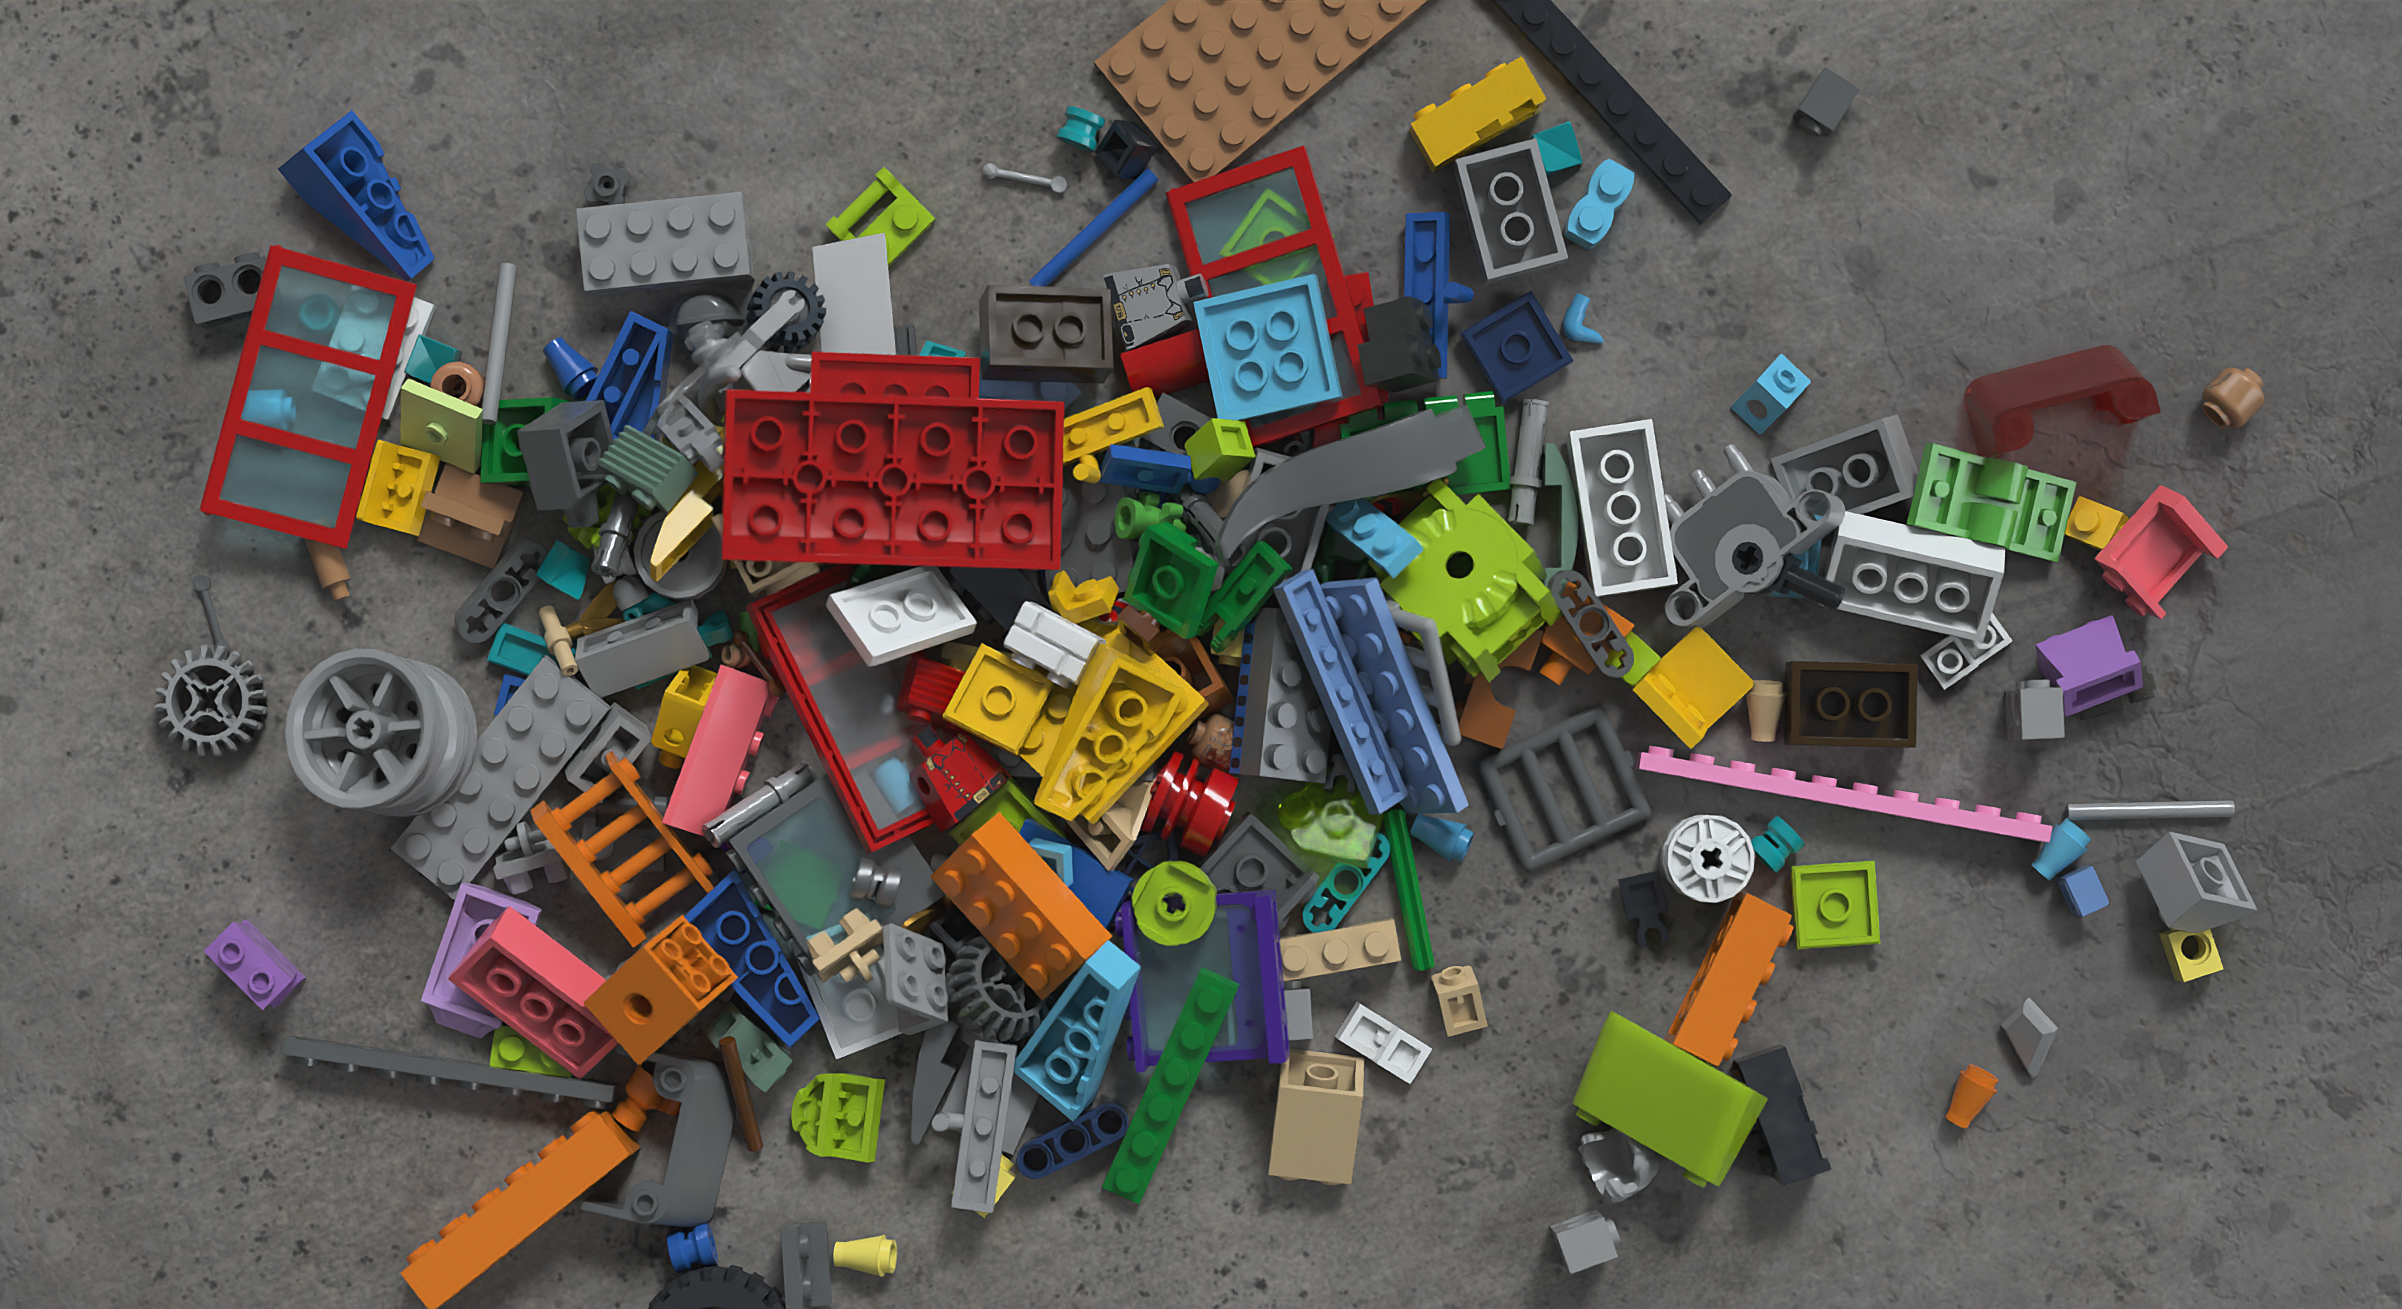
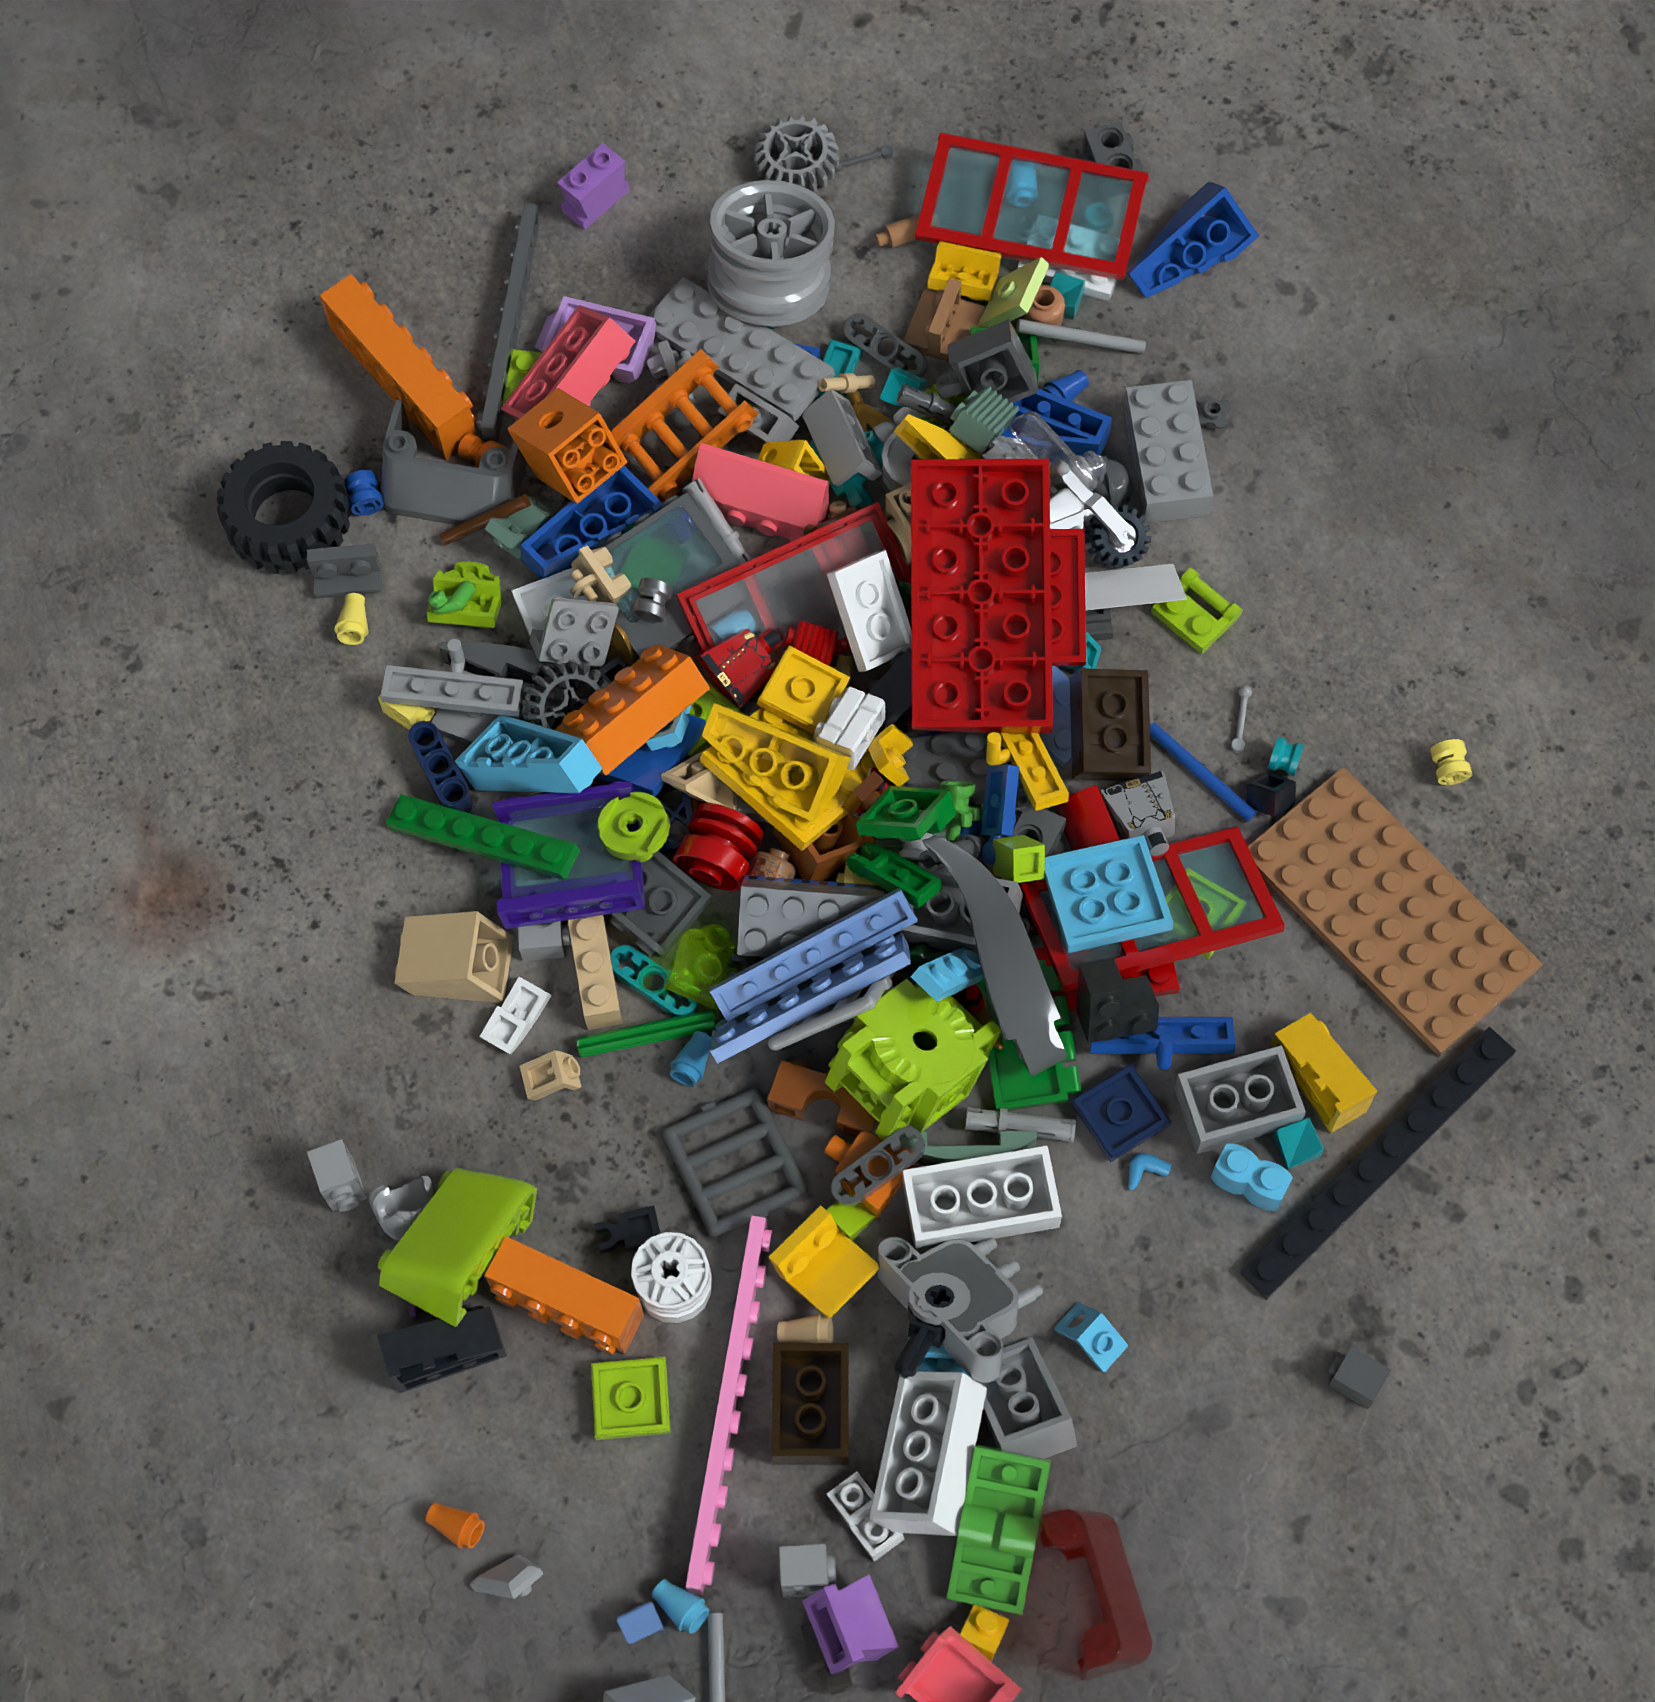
camera: 90 degrees right, 20 degrees down
(858, 1130) = (457, 601): none -> bright green arm
(1783, 838) = (685, 1343): teal wheel -> none

